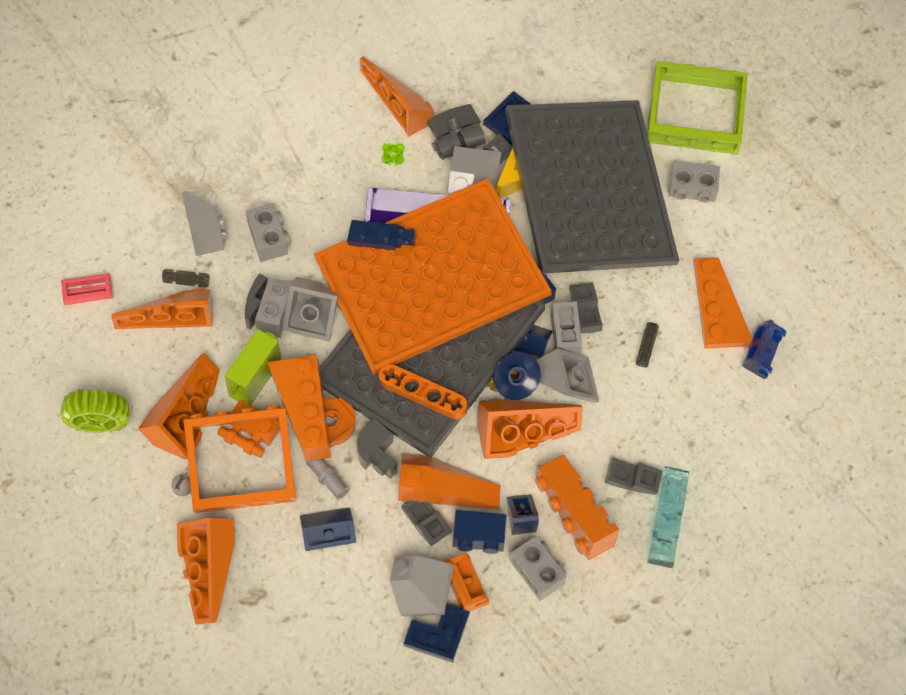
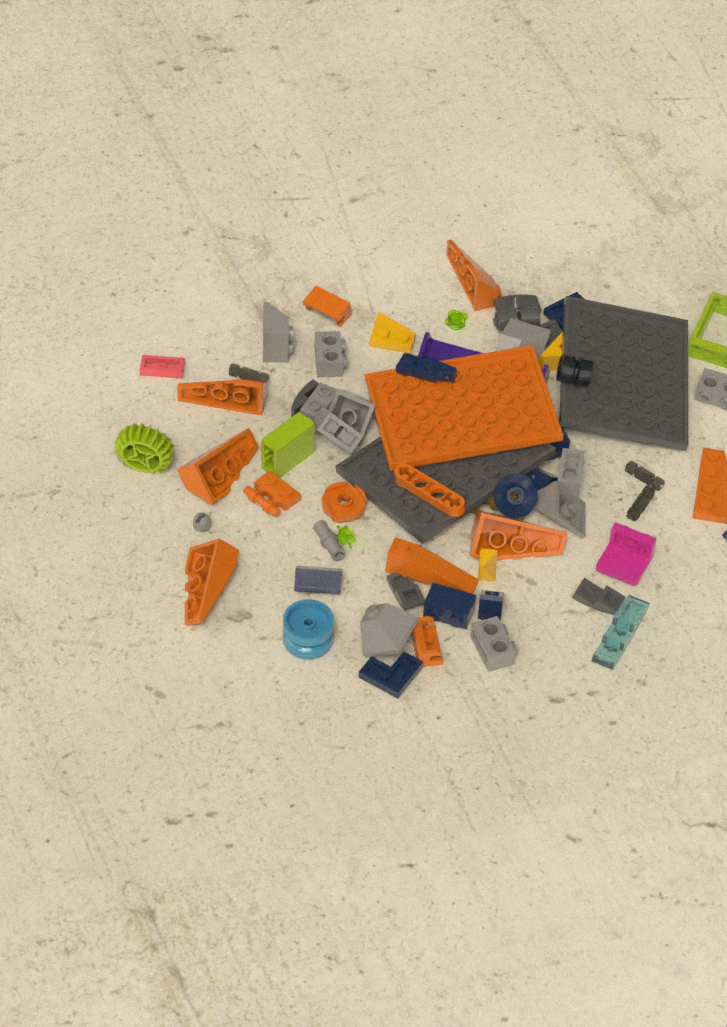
camera: 15 degrees right, 15 degrees down
(241, 500) = (254, 541): orange window -> none
(250, 169) = (328, 304): none -> orange hinge
(302, 336) = (337, 430): none -> light grey brick
(302, 396) = (324, 475): orange wedge -> none
(328, 189) = (391, 335): none -> yellow wing
(335, 588) = (308, 629): none -> dark azure wheel
(344, 467) = (345, 536): none -> clear neon green plate
(371, 446) = (375, 527): dark grey brick -> none
(505, 466) = (487, 565): none -> yellow slope
(546, 204) = (574, 370): none -> black wheel
(576, 508) = (540, 607): orange wedge -> none
(587, 307) = (594, 465): dark grey slope -> none
(642, 308) = (644, 475): none -> clear smoke axle
(650, 418) = (626, 554): none -> dark pink bracket

